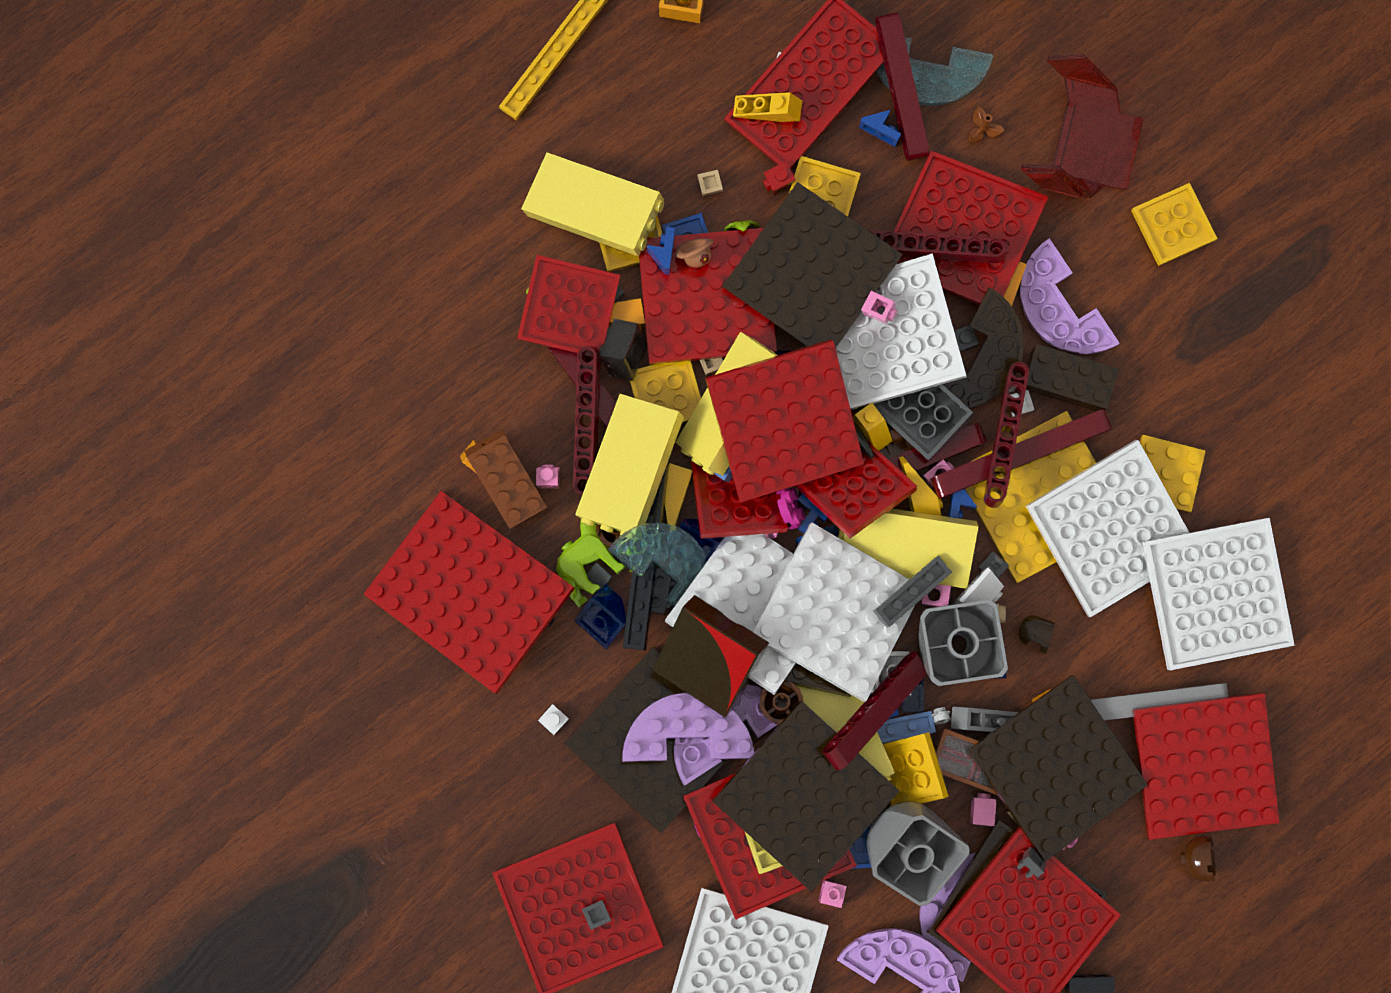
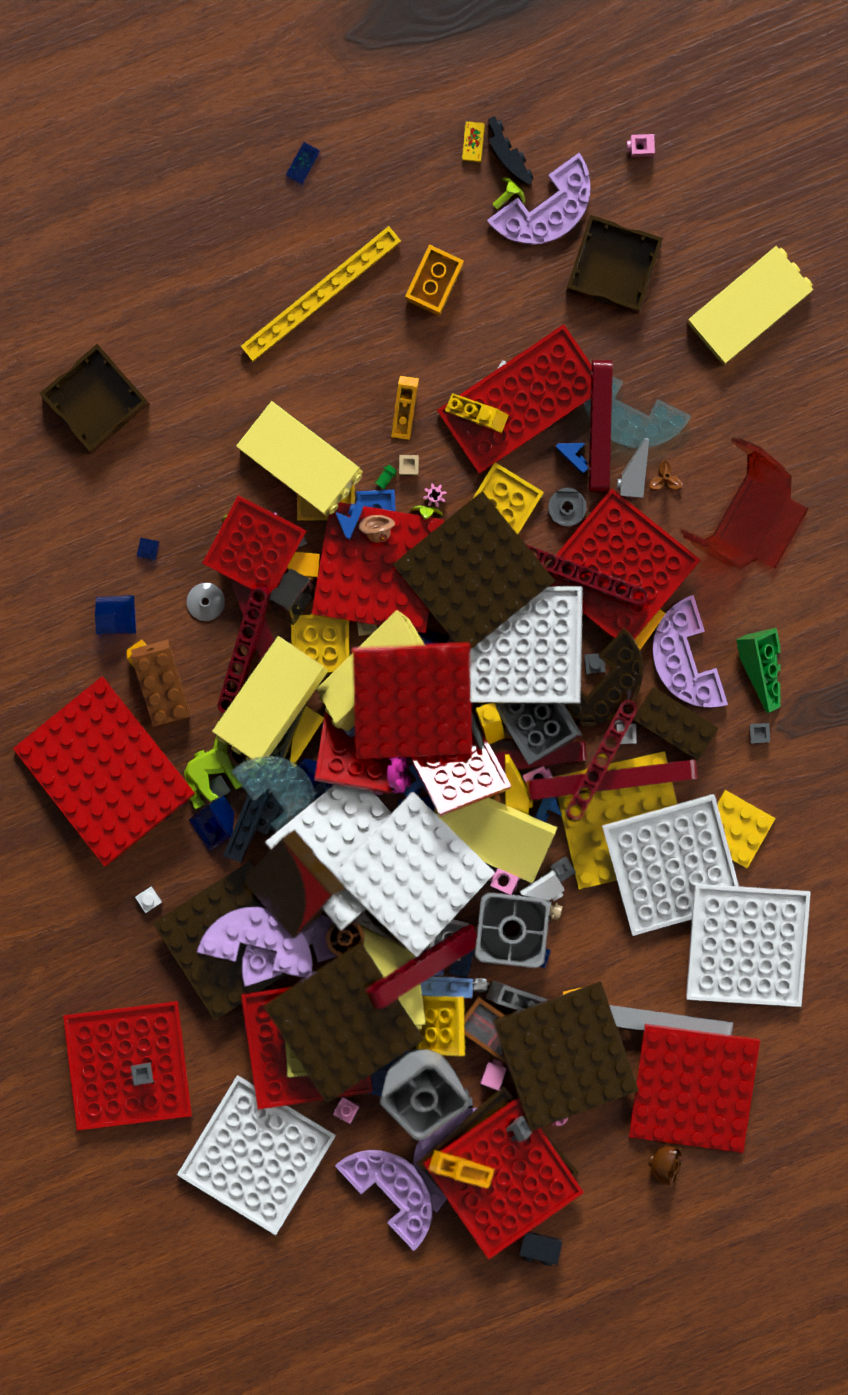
camera: 20 degrees right, 5 degrees up
(357, 200) = (94, 398): none -> dark brown tile
(438, 423) = (115, 615): none -> clear blue slope
(455, 343) = (148, 548): none -> clear blue plate
(539, 391) = (212, 609): none -> light grey dish
(548, 477) = (198, 688): bright pink brick -> none
(689, 125) = (404, 407): none -> light orange slope
(689, 201) = (386, 476): none -> green pin
(748, 201) = (431, 500): none -> bright pink gear
(778, 177) = (469, 477): red bracket -> none
(874, 303) = (515, 620): bright pink brick -> none
(889, 195) = (558, 500): none -> dark grey plate
(912, 591) = (482, 874): dark grey plate -> none
(951, 131) = (633, 476): none -> light grey slope
(981, 926) = (461, 1169): none -> light orange slope
(1037, 630) = (583, 935): dark brown helmet -> none
(1137, 285) = (759, 658): none -> green wedge
(1161, 365) = (759, 733): none -> dark grey plate
(1174, 224) = (807, 611): yellow plate -> none

